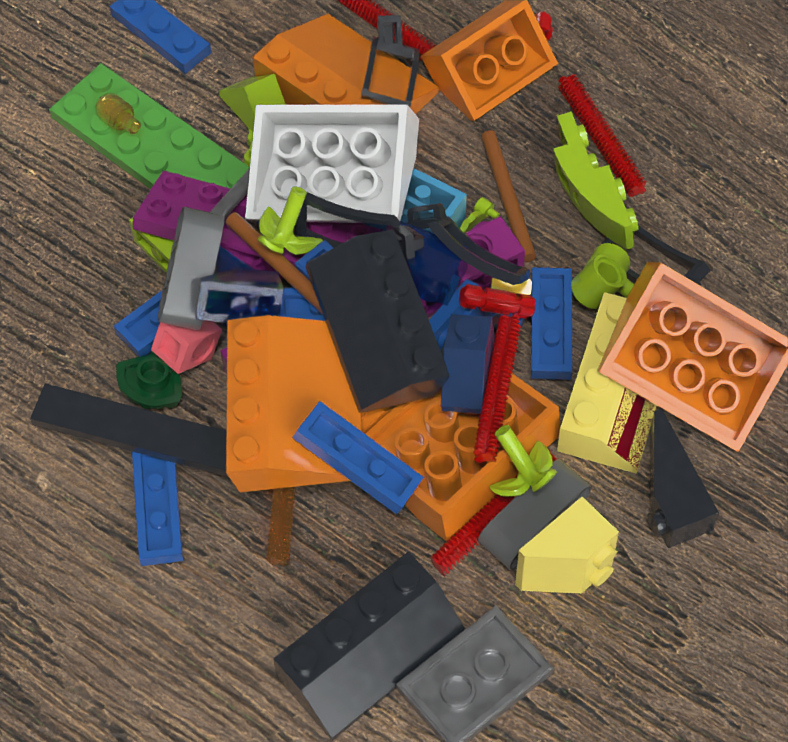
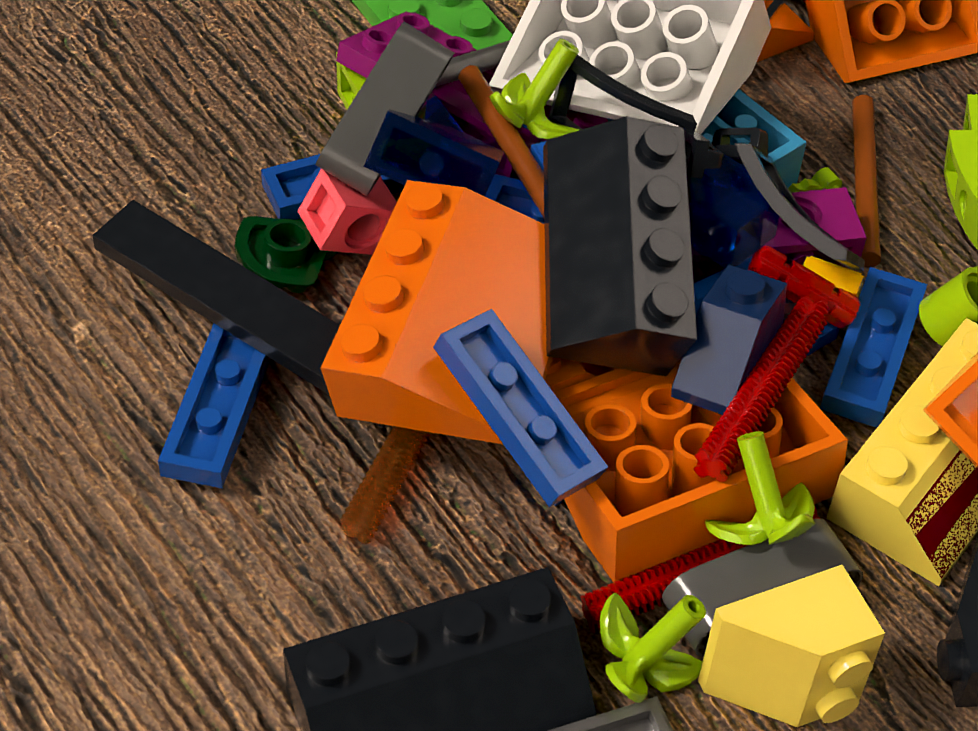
camera: 15 degrees right, 10 degrees down
(487, 581) = (652, 654): none -> lime plant

